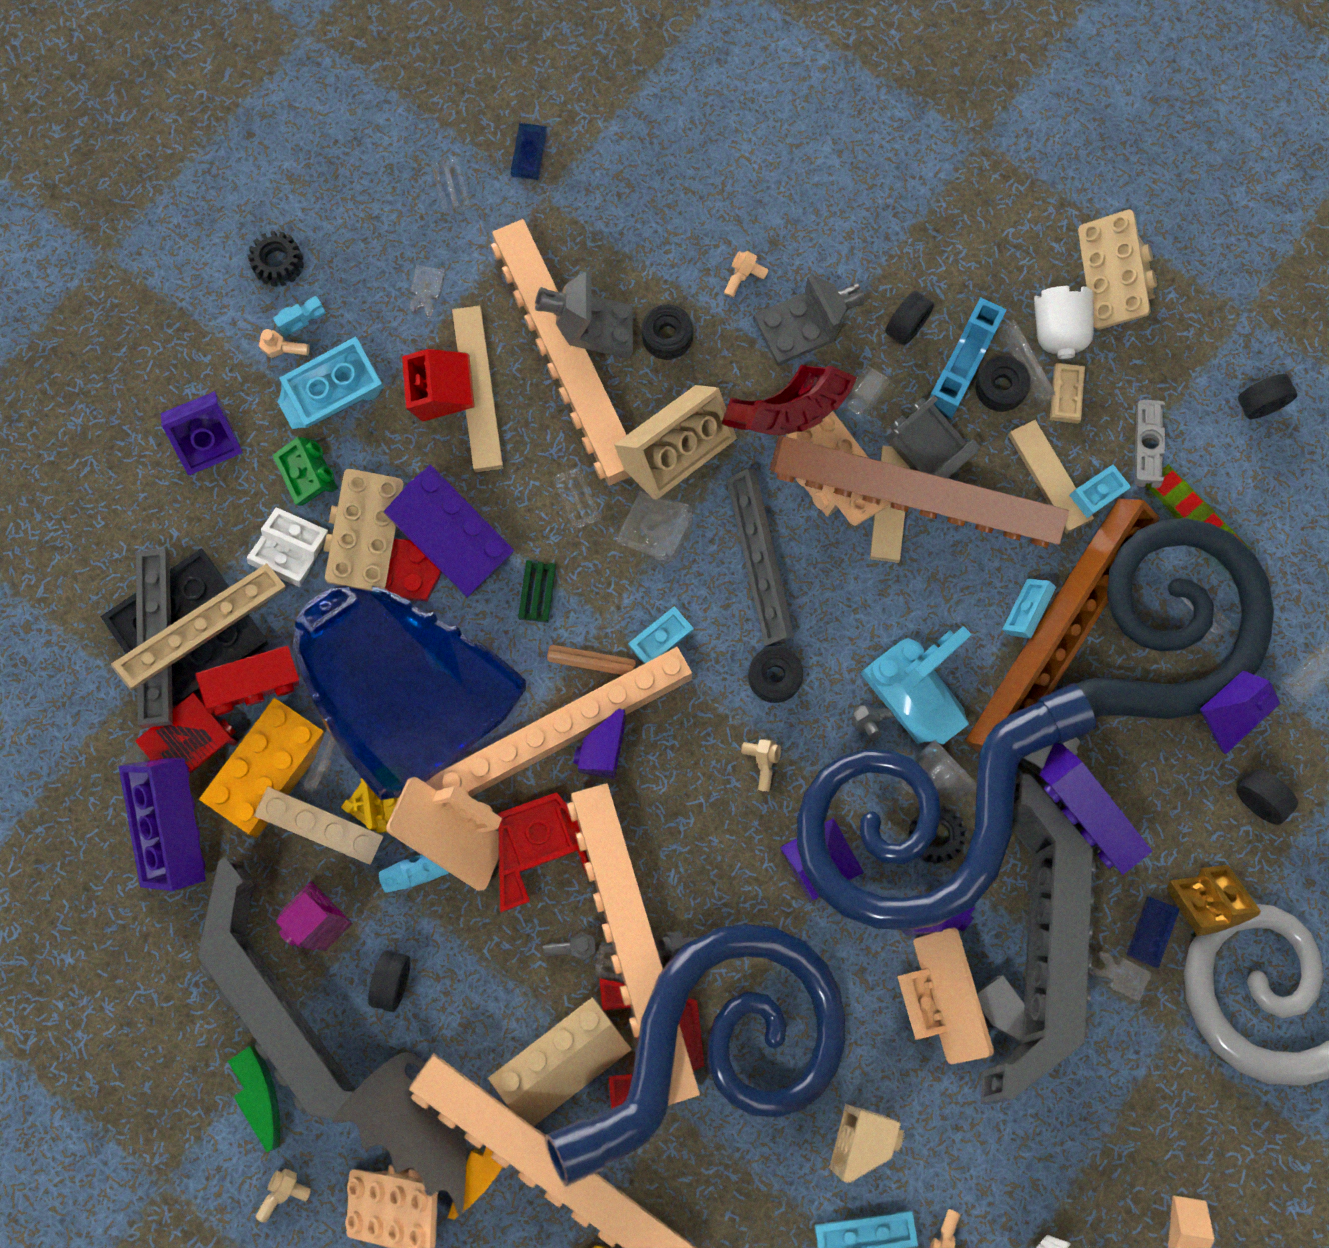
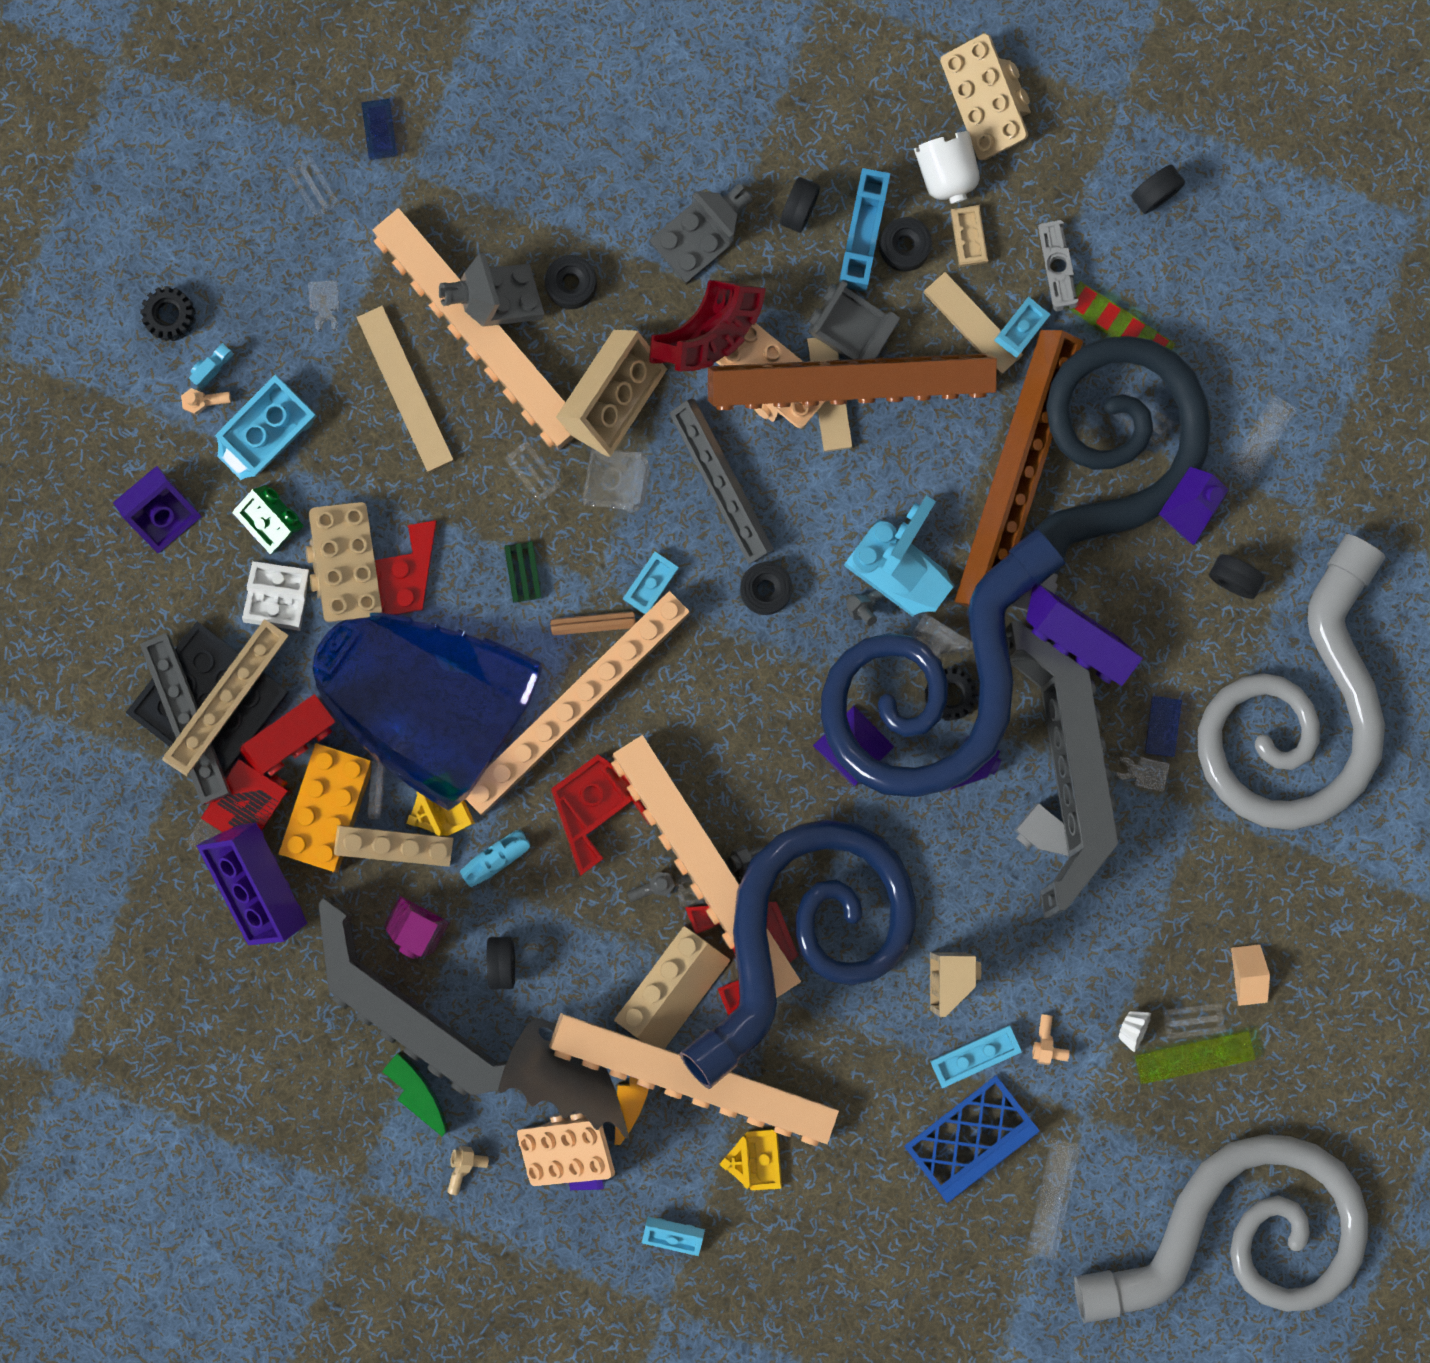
camera: 15 degrees left, 10 degrees up
(437, 383) = (368, 398): red slope -> none
(448, 531) = (425, 541): dark purple slope -> none
(448, 830) = (513, 817): light nougat bracket -> none
(602, 747) = (627, 703): dark purple slope -> none
(744, 265) = (626, 192): light nougat piece -> none
(766, 754) = (777, 664): tan piece -> none
(867, 391) = (779, 289): clear brick -> none
(945, 999) = (992, 838): light nougat bracket -> none
(1020, 350) = (921, 213): clear tile -> none
(1029, 608) = (983, 459): medium azure plate -> none
(1213, 900) = (1209, 683): pearl gold slope -> none

